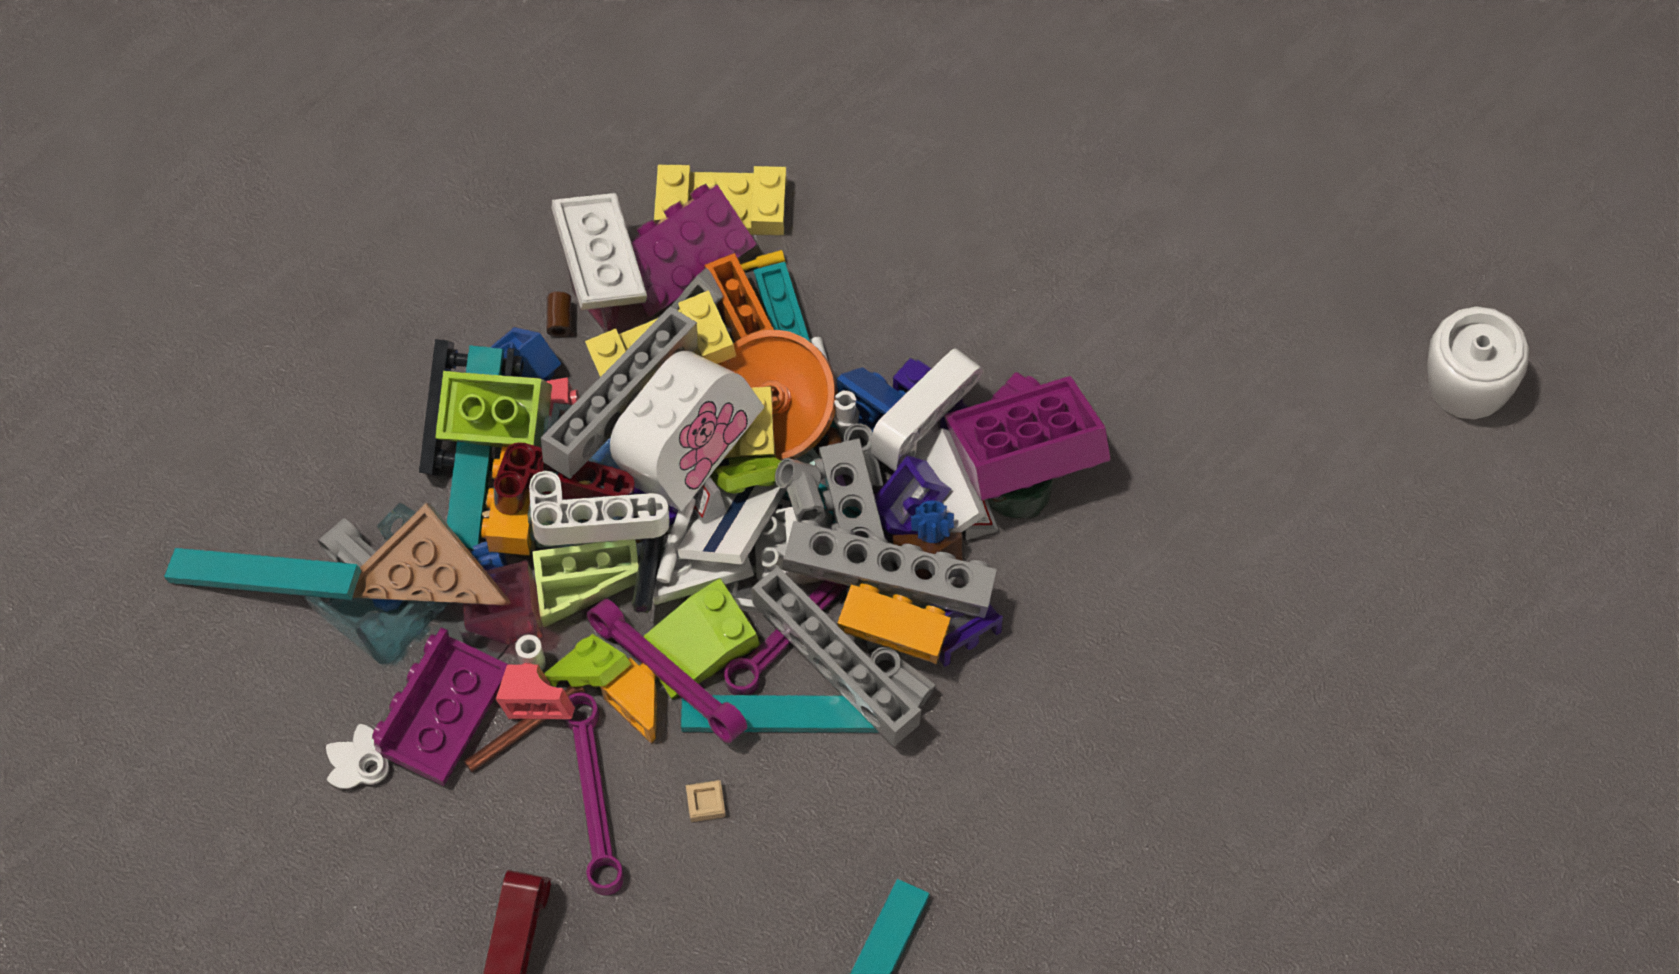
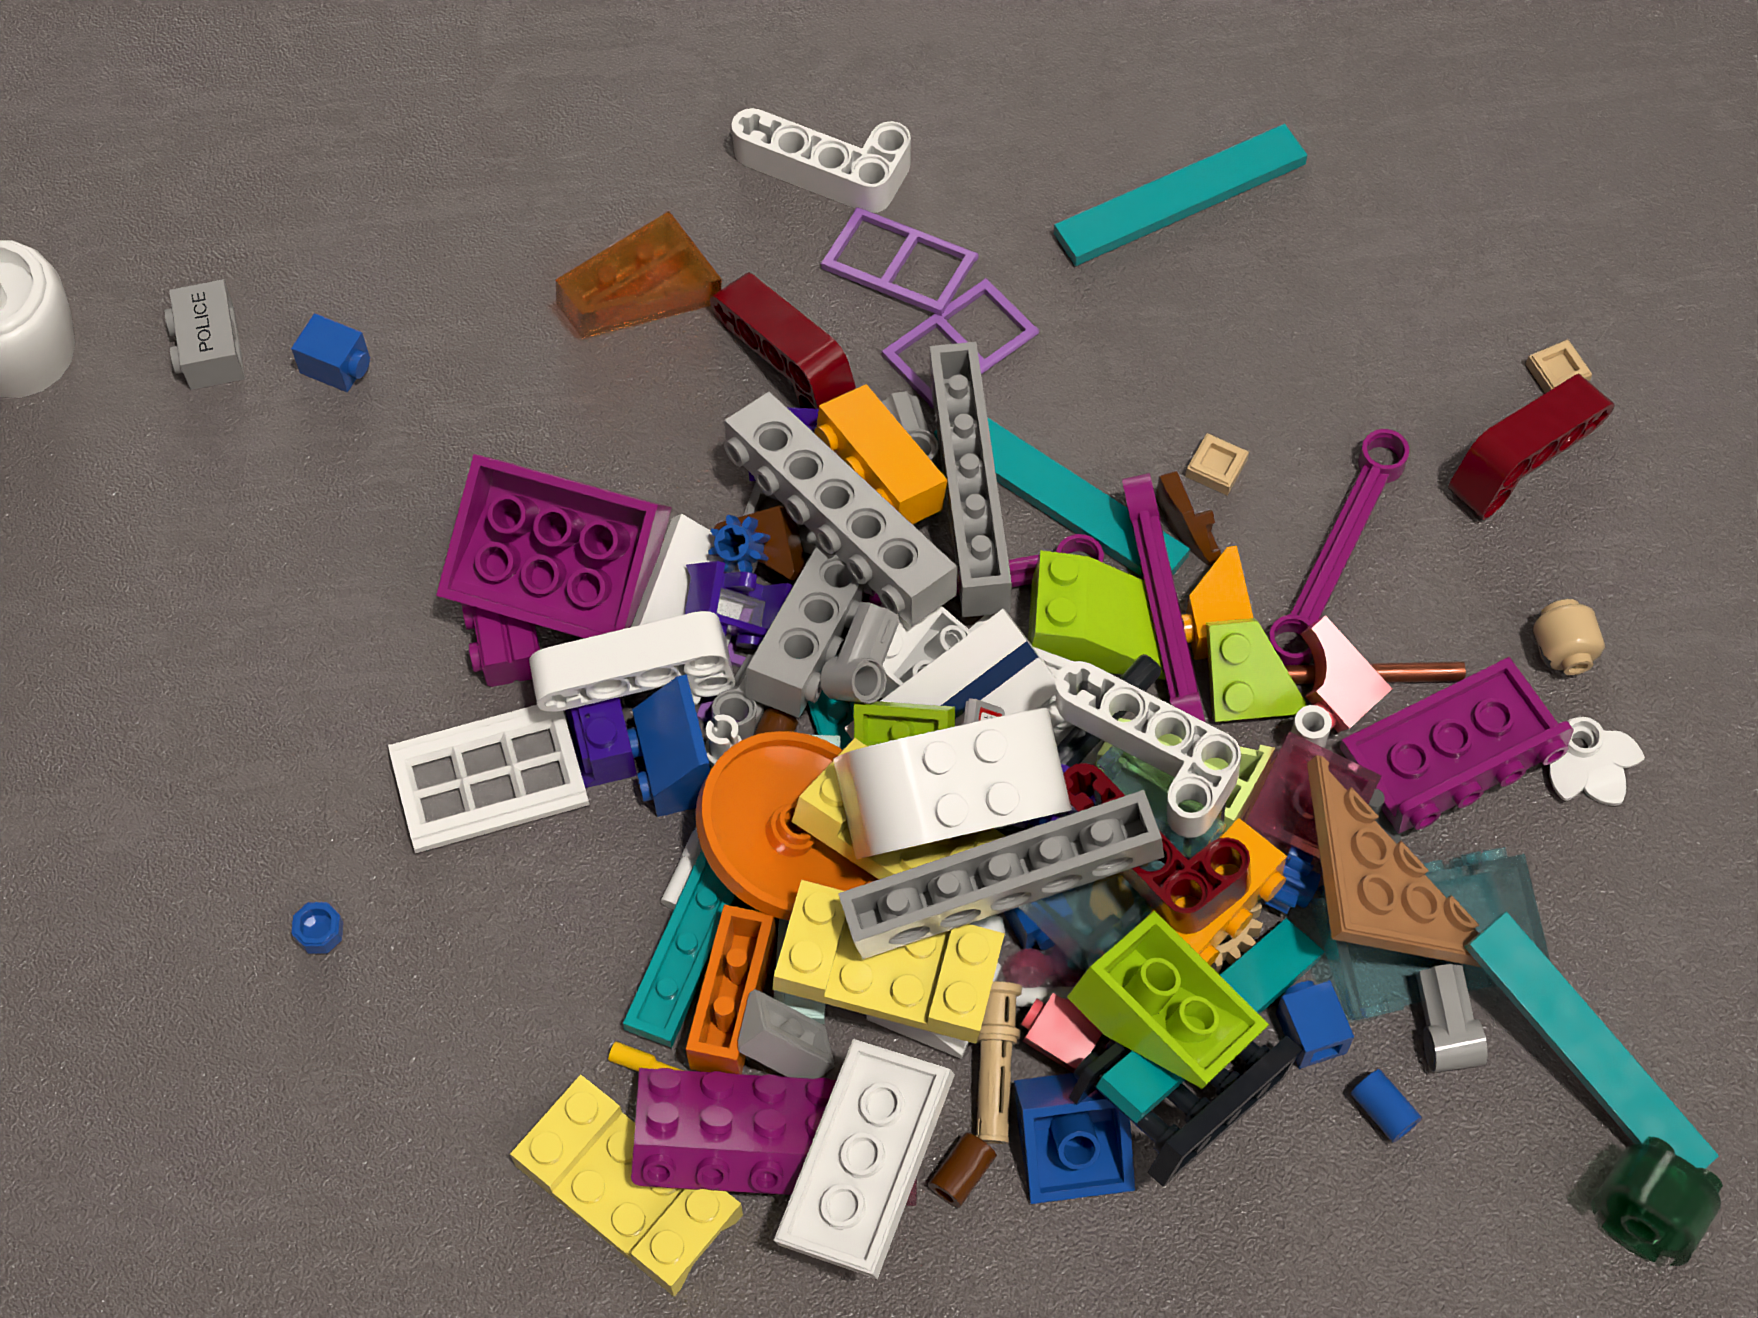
camera: 145 degrees left, 0 degrees up
(183, 518) = (1658, 1202): none -> clear green brick
(359, 487) = (1386, 1105): none -> blue piece
(414, 819) = (1568, 636): none -> tan head
(421, 490) = (1314, 1022): none -> blue brick
(571, 359) = (996, 1042): none -> tan pin
(684, 741) = (1190, 528): none -> reddish brown slope
(951, 780) = (891, 353): none -> medium lavender window
(976, 322) = (487, 776): none -> white piece
(983, 207) = (317, 927): none -> blue tile
(1004, 778) = (885, 283): none -> medium lavender window
(1025, 678) = (785, 340): none -> dark red beam
(1121, 833) = (822, 163): none -> white beam
(1147, 659) = (638, 280): none -> clear orange wedge
(1284, 494) = (331, 353): none -> blue brick
(1367, 454) = (205, 335): none -> light grey brick

